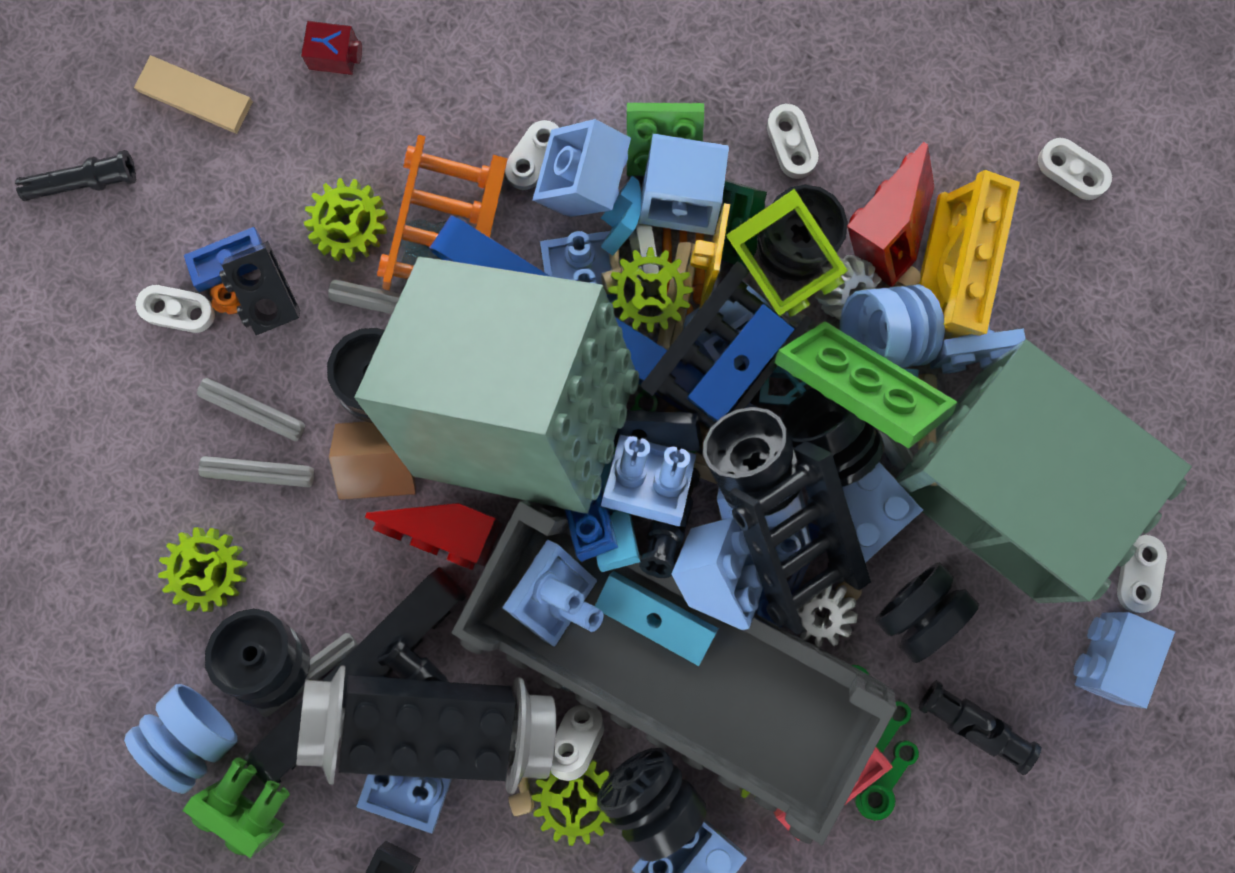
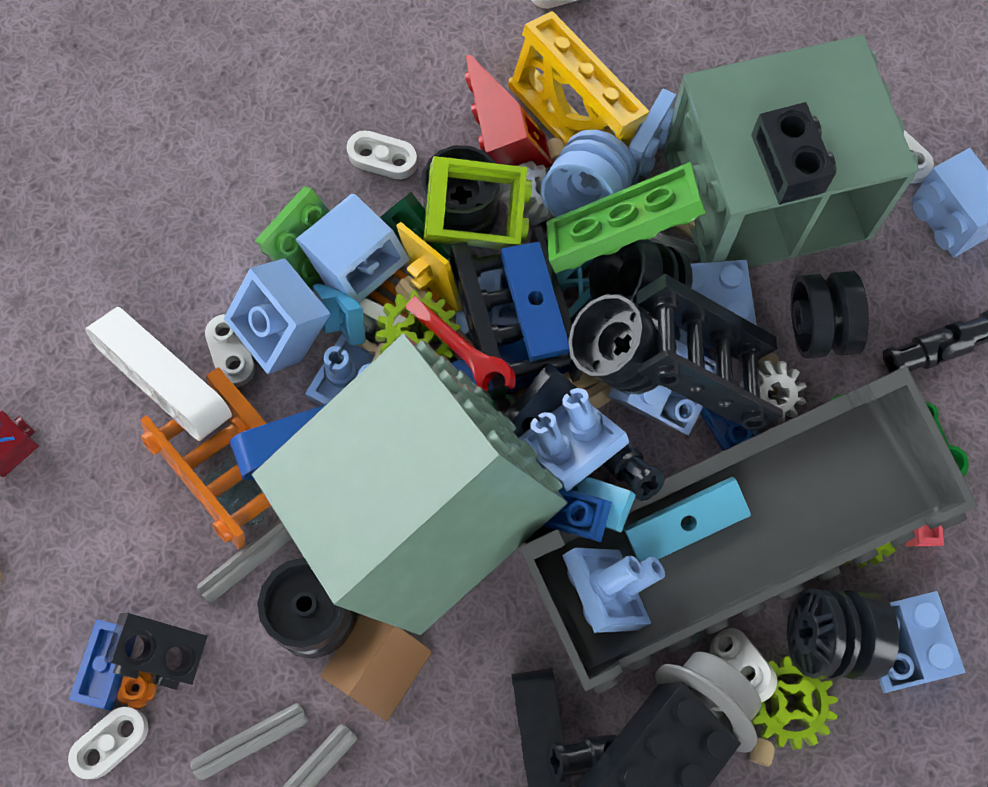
camera: 55 degrees left, 10 degrees down
(332, 227) = (154, 553): lime gear -> none
(449, 527) = (491, 634): red slope -> none
(467, 117) = (159, 373): none -> white beam
(650, 361) = (481, 365): none -> red piece
(719, 573) = (688, 441): light blue slope -> none
(1009, 477) = (784, 154): none -> black brick

